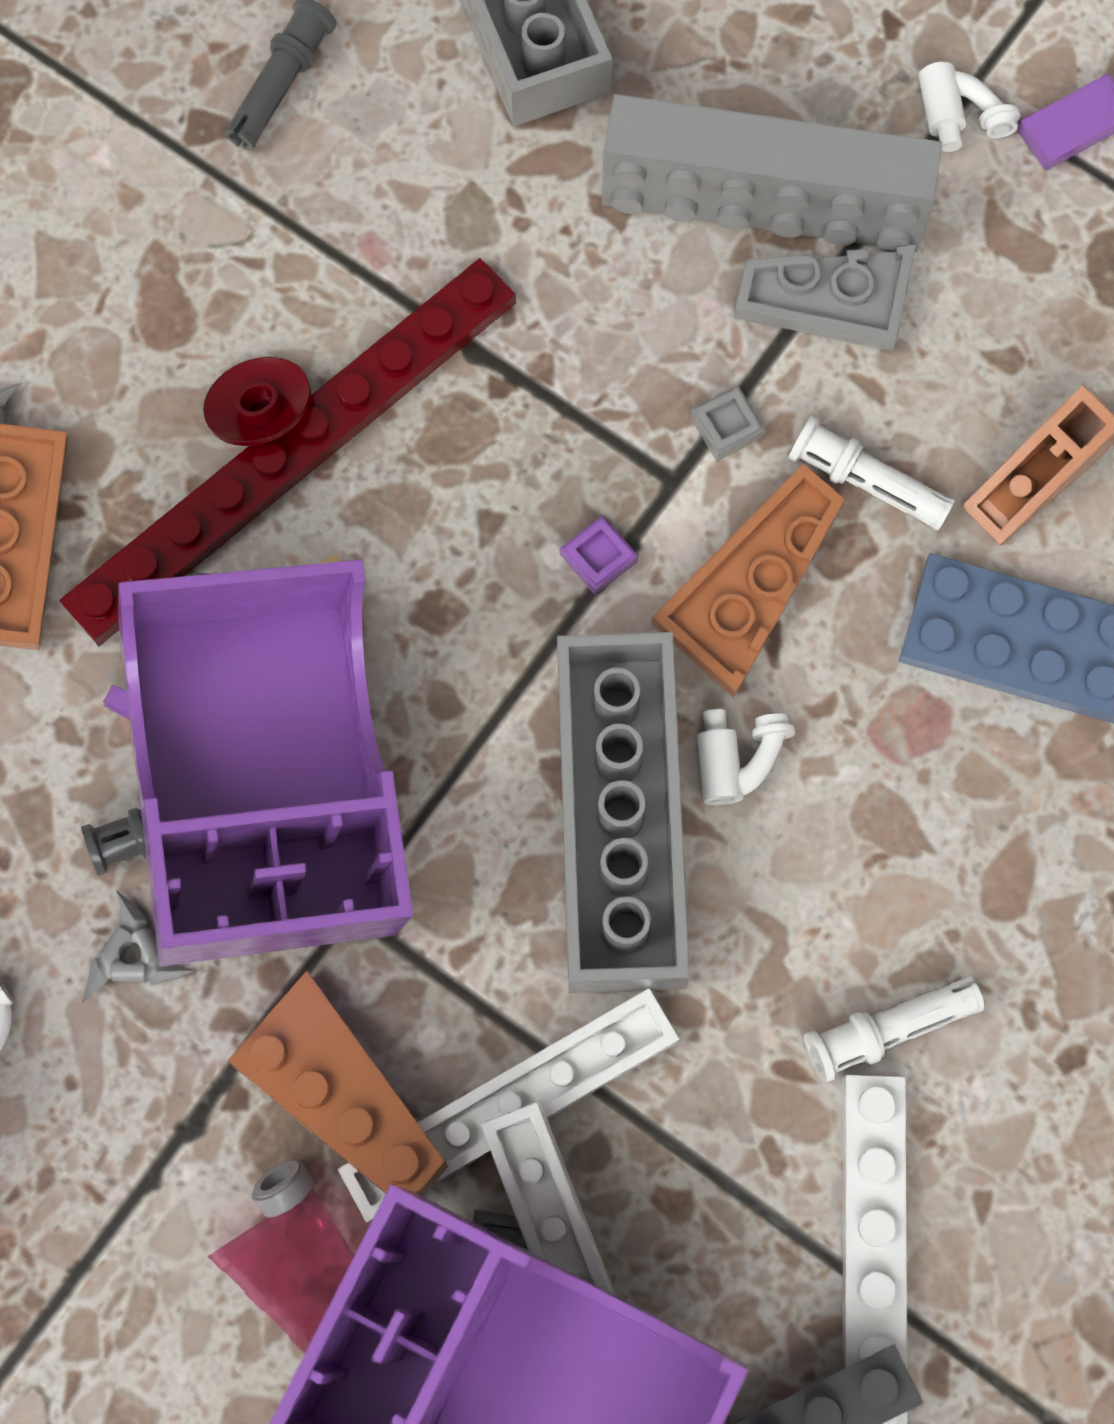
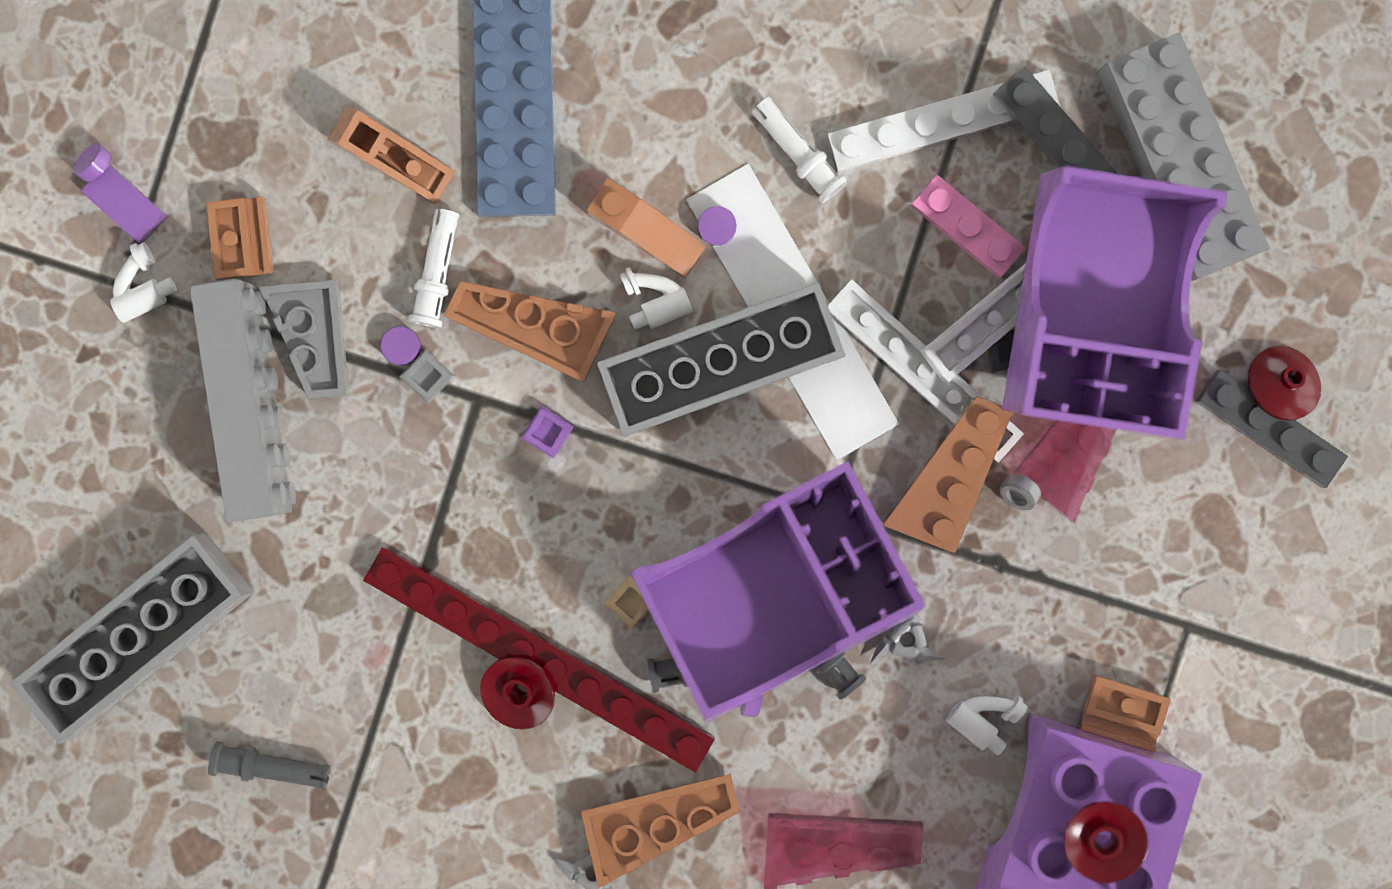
camera: 110 degrees left, 15 degrees up
(704, 1245) = (968, 226): none -> bright pink plate
(737, 933) = (768, 265): none -> white sticker
(780, 401) = (400, 345): none -> medium lavender tile
(816, 875) = (717, 226): none -> medium lavender tile
(844, 771) = (645, 228): none -> nougat slope
(988, 244) = (240, 238): none -> nougat plate

